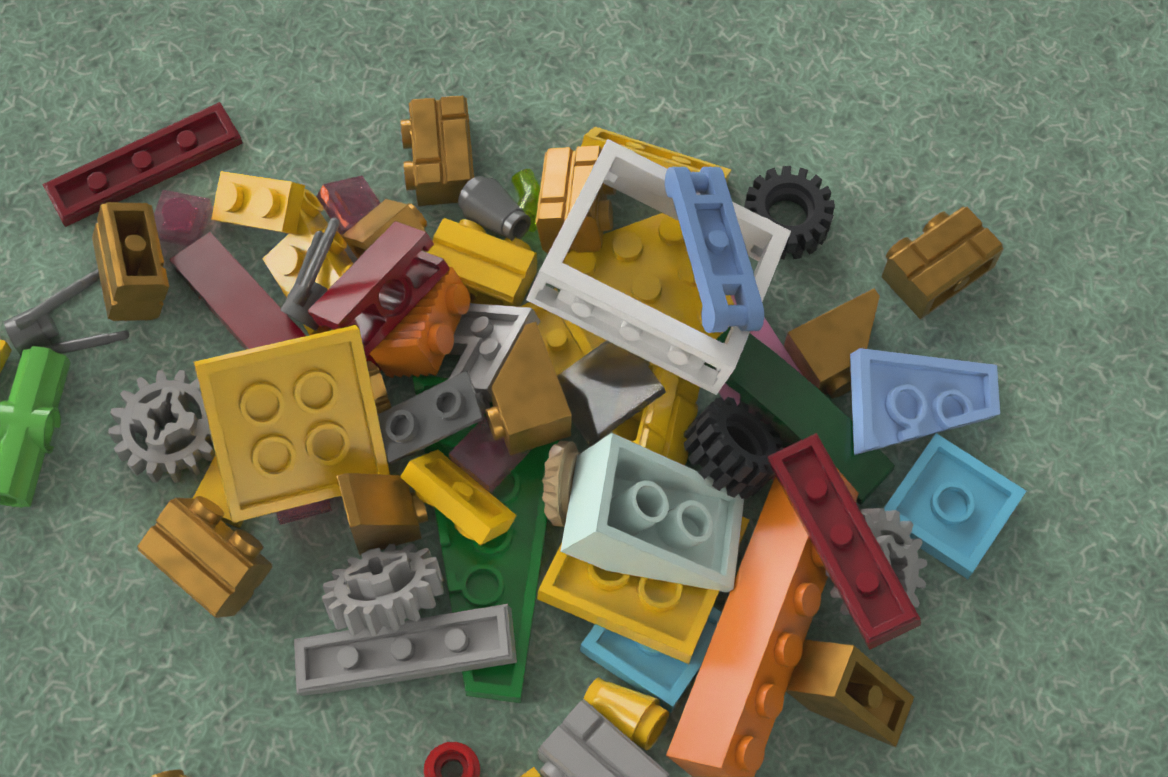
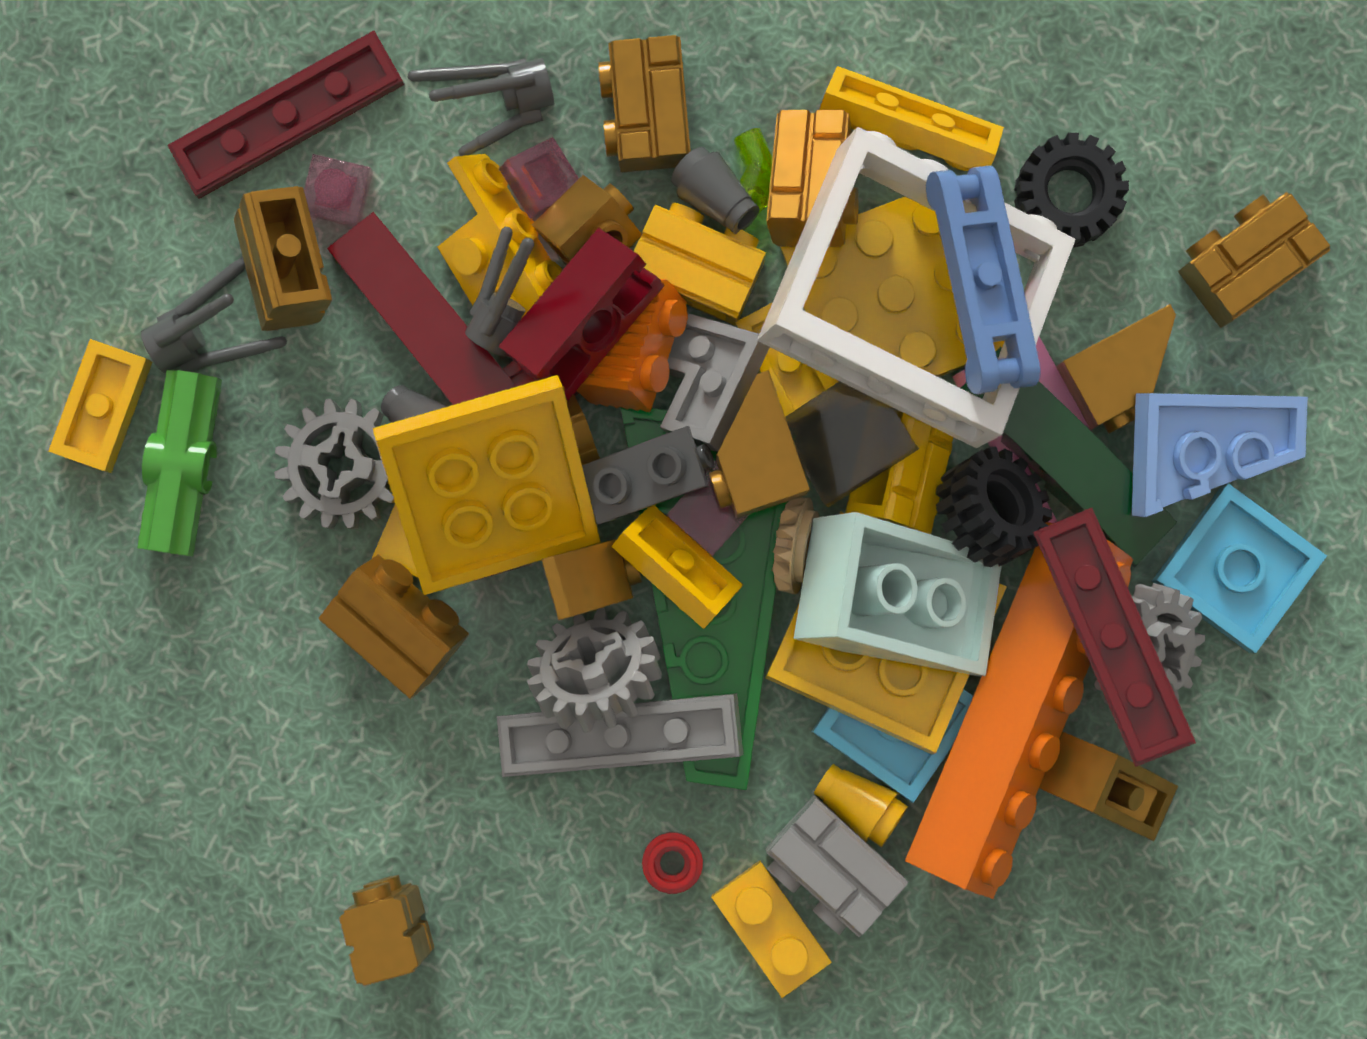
camera: 10 degrees right, 20 degrees up
(258, 202) = (430, 181): yellow plate -> none
(337, 140) = (521, 84): none -> dark grey plant

